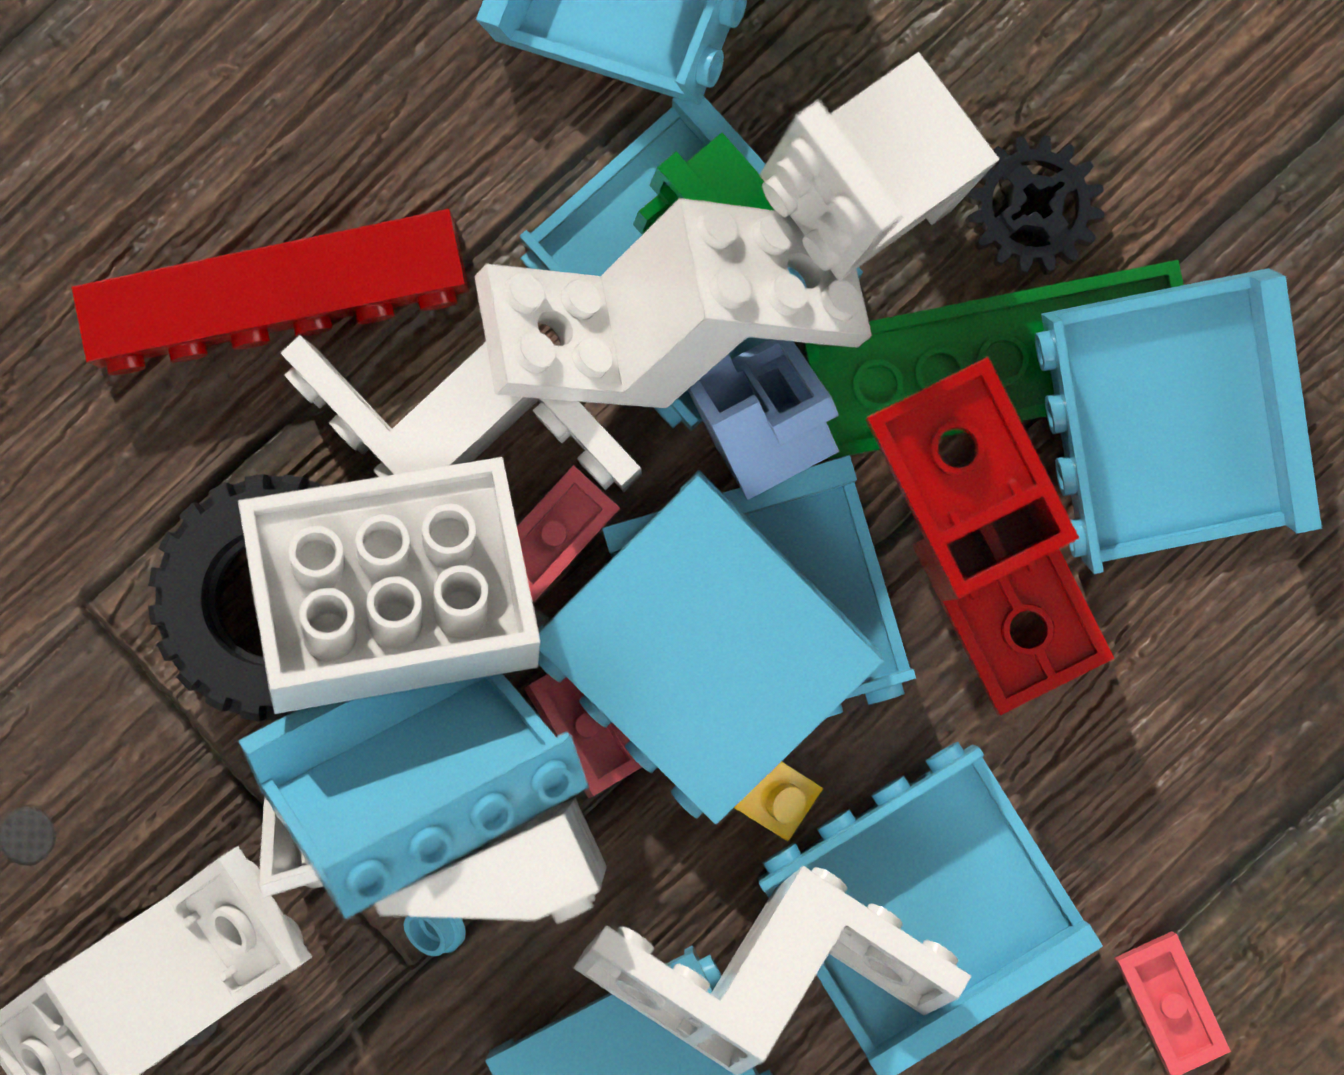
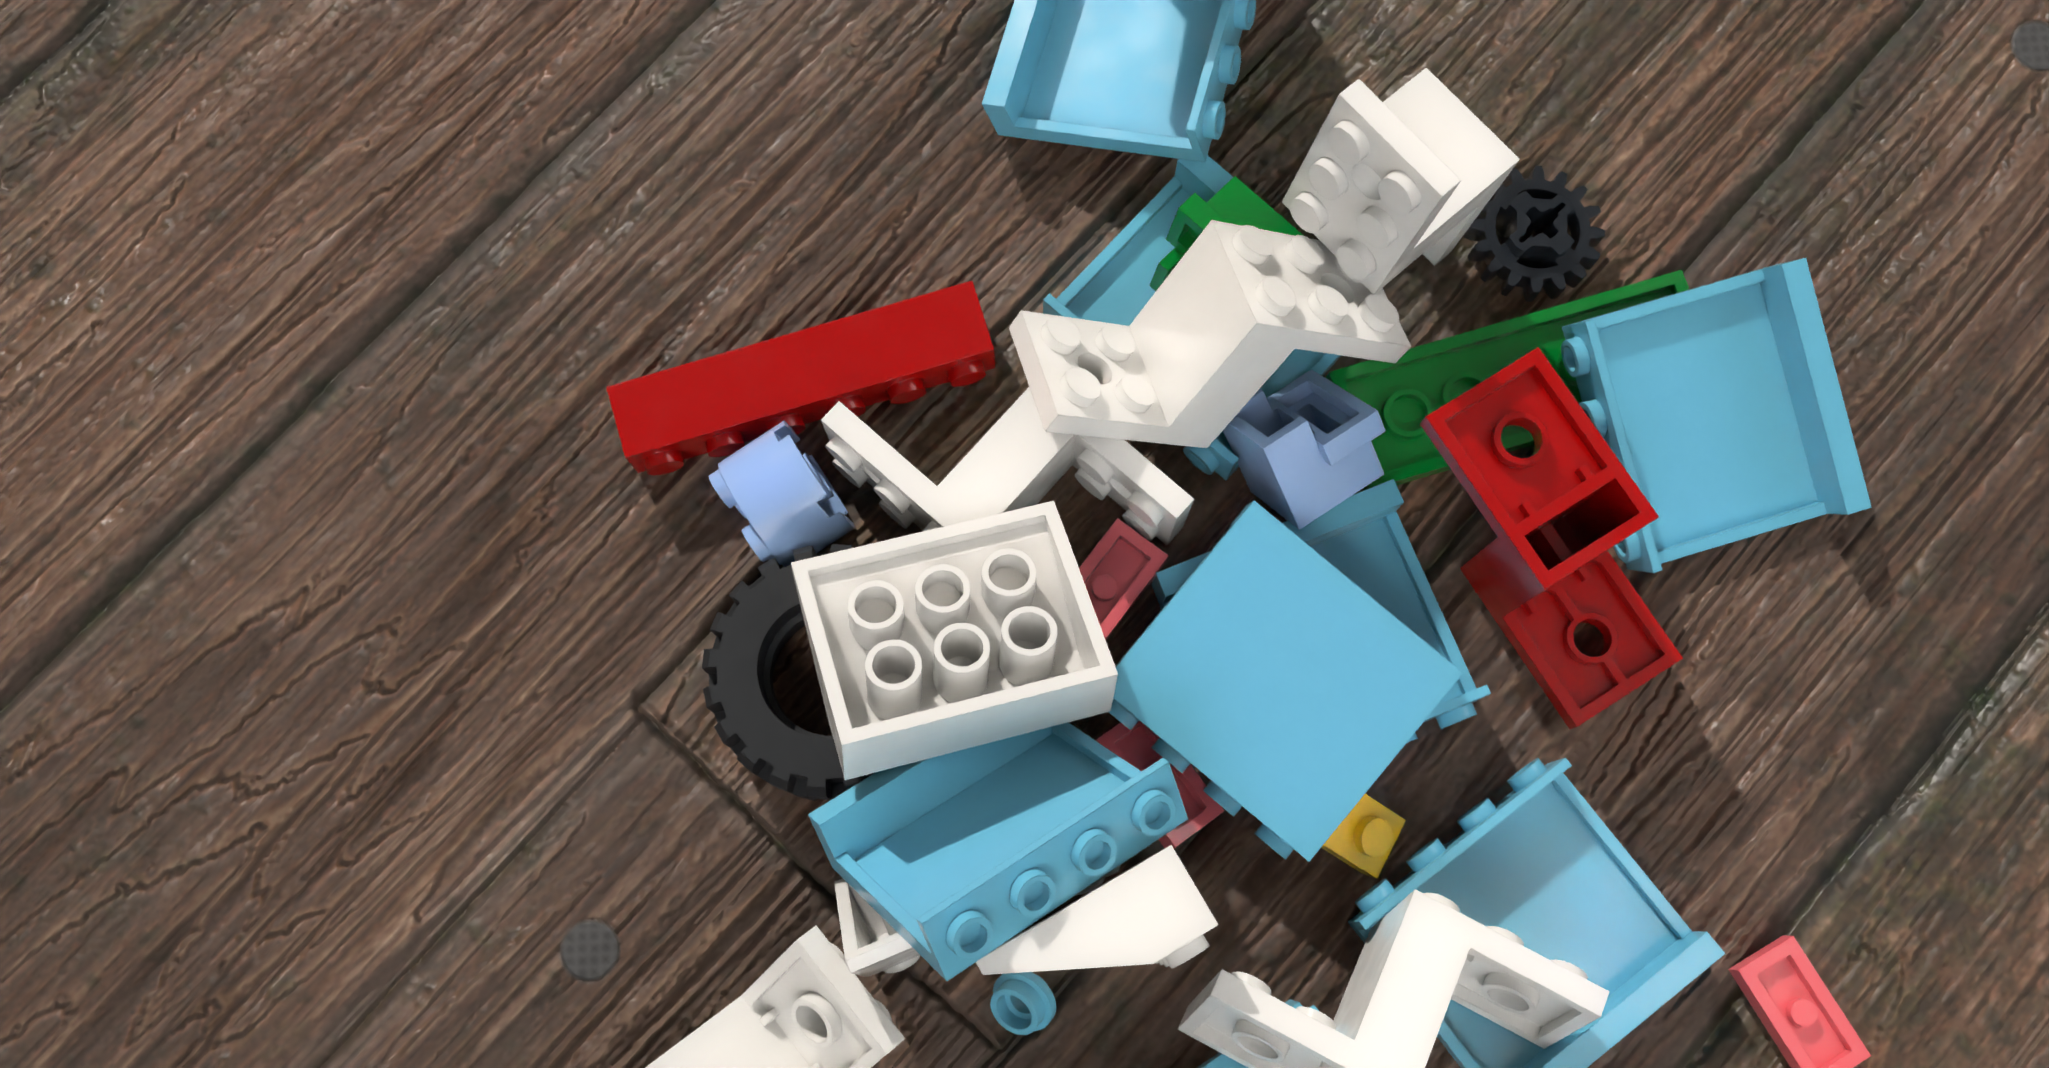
camera: 10 degrees left, 10 degrees down
(239, 416) = (781, 496): none -> light blue brick

